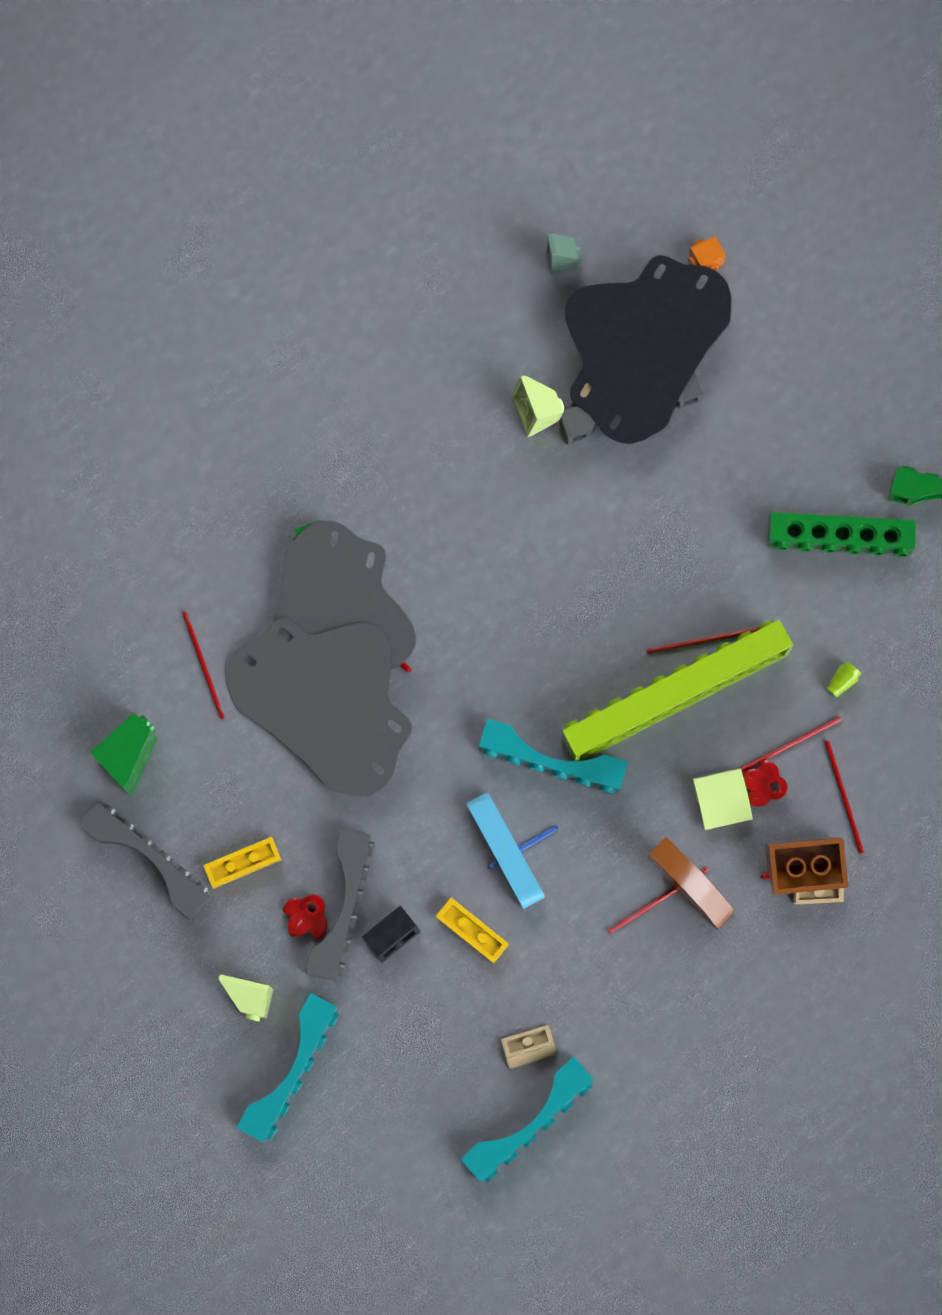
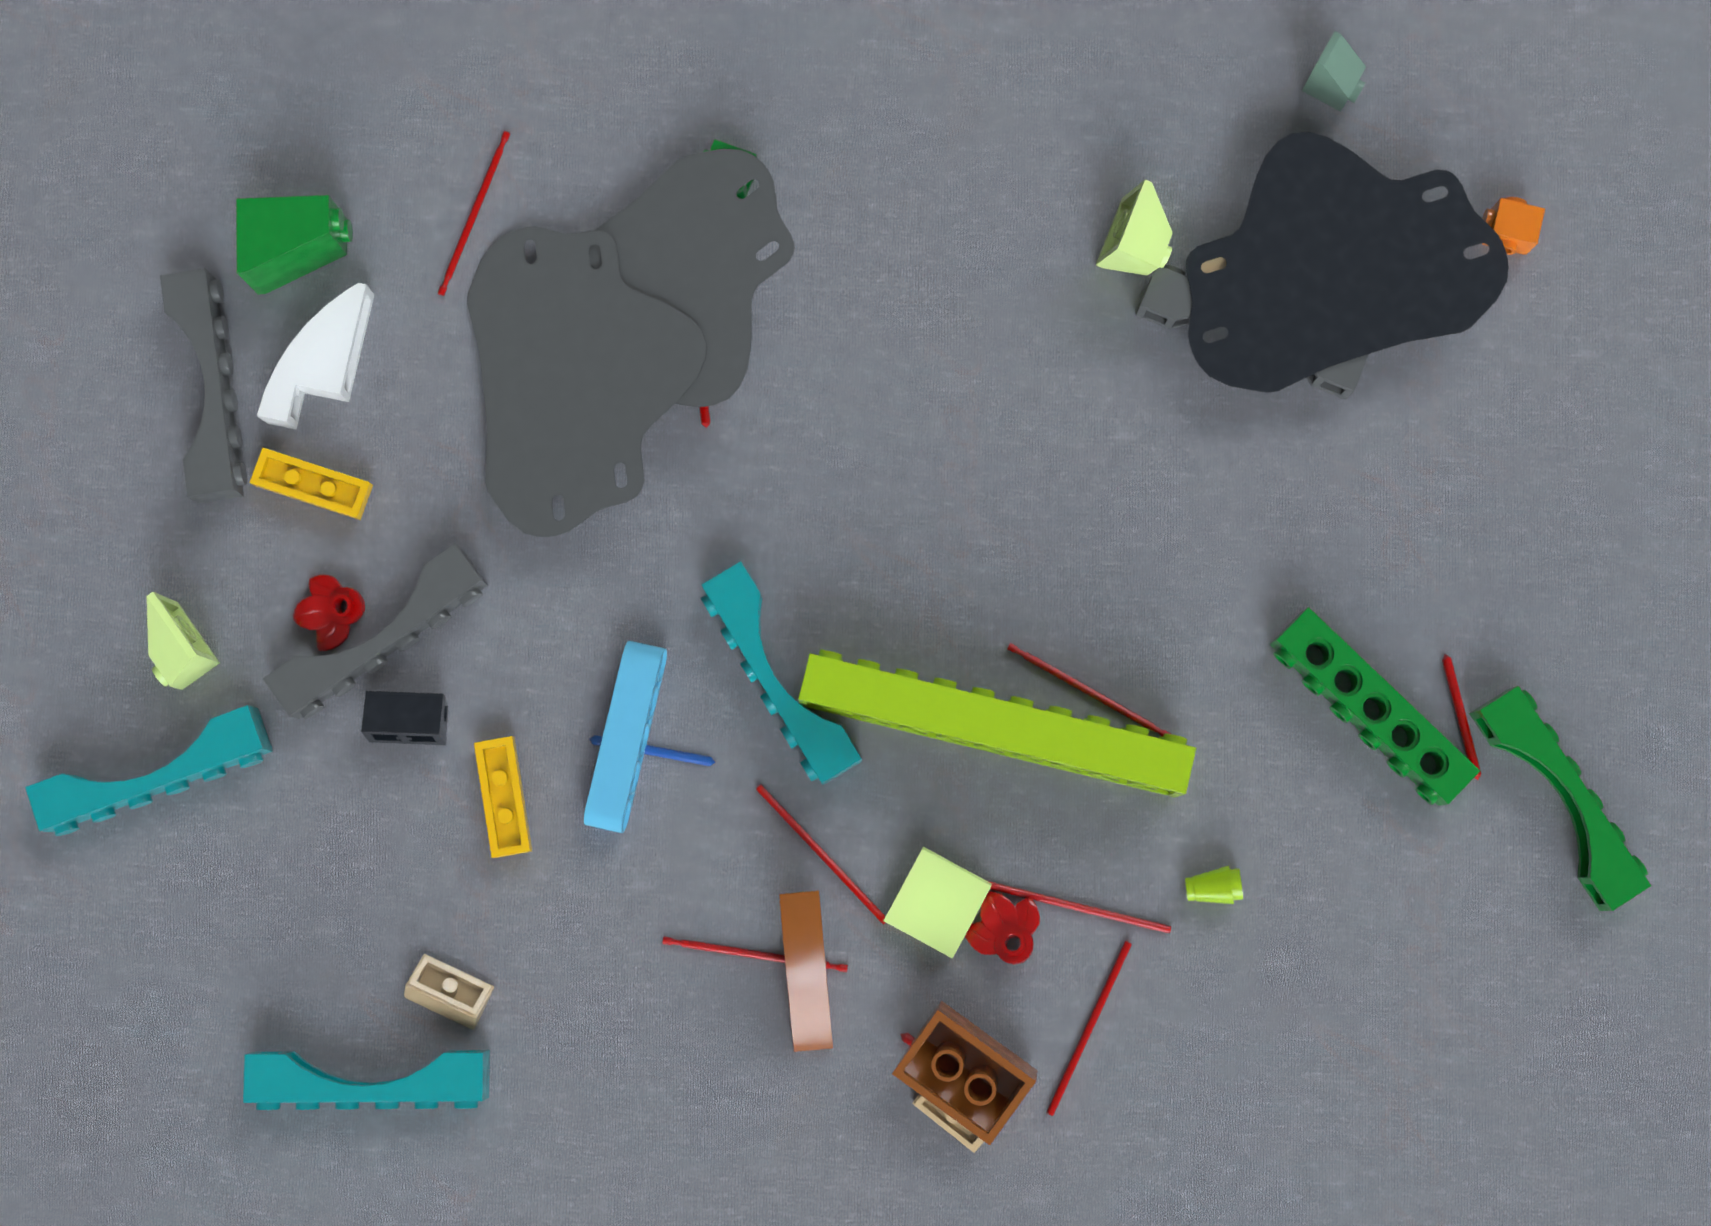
camera: 40 degrees right, 5 degrees up
(192, 799) = (319, 359): none -> white slope
(647, 825) = (821, 853): none -> red piece
(881, 501) = (1460, 712): none -> red axle

